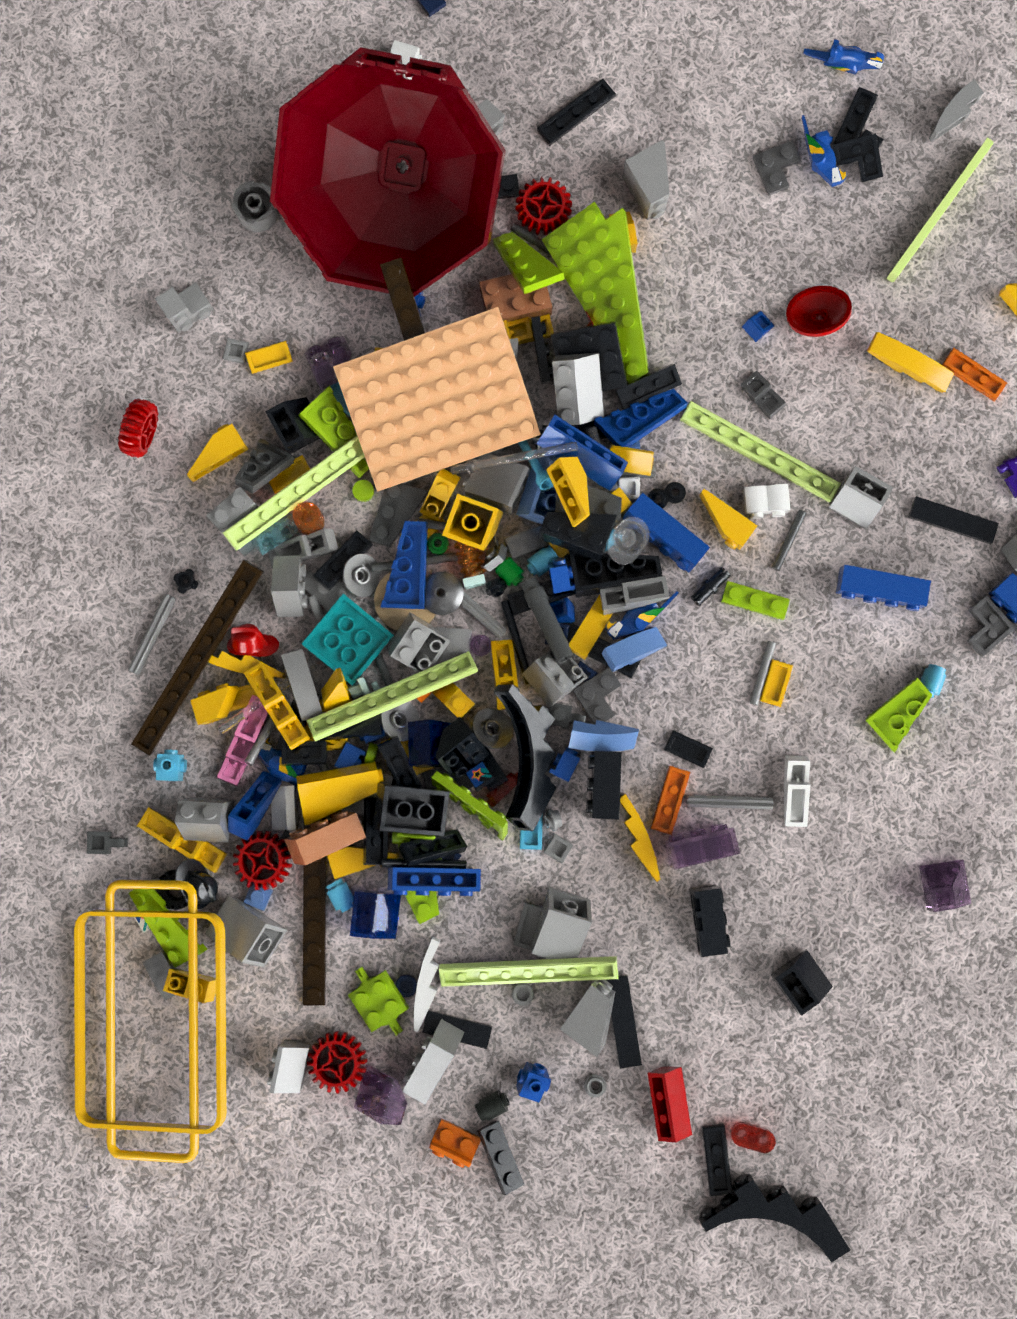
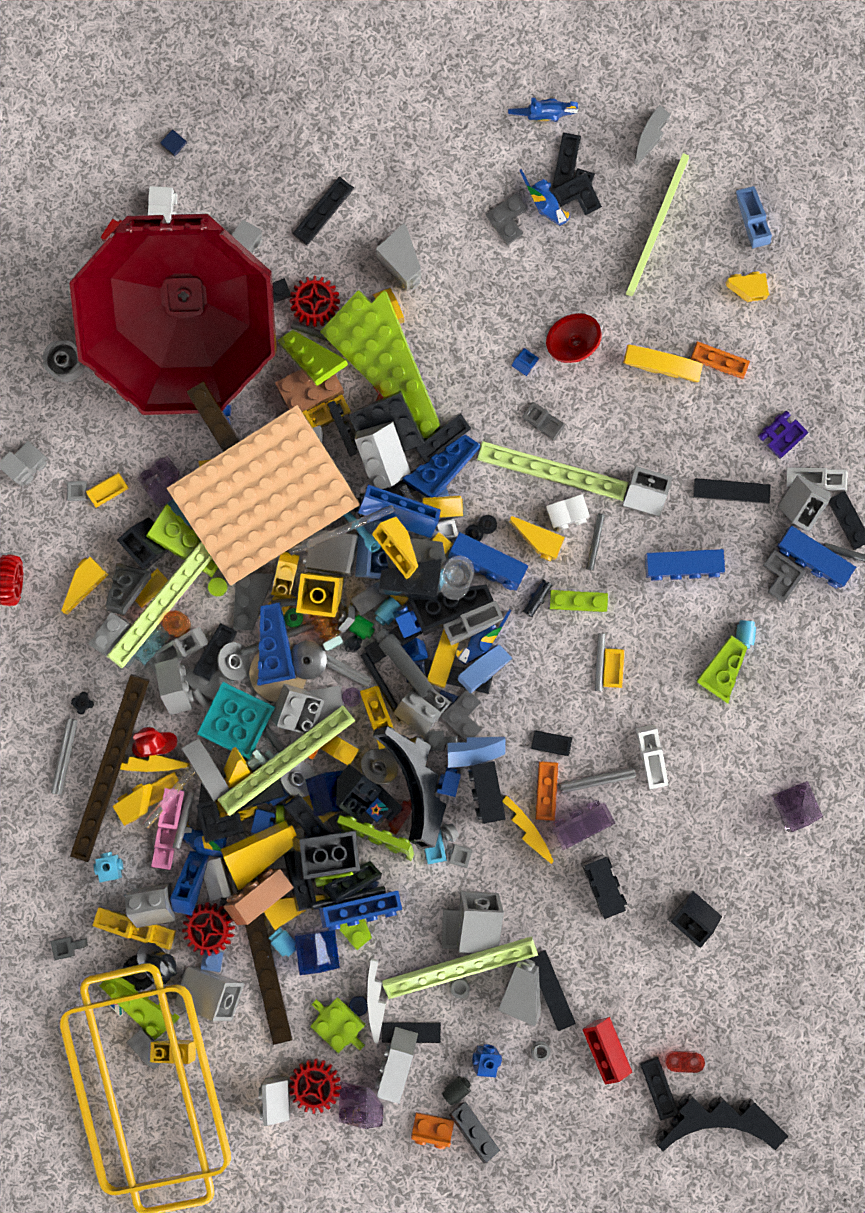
camera: 20 degrees left, 0 degrees up
(276, 705) = (188, 793): yellow slope -> none

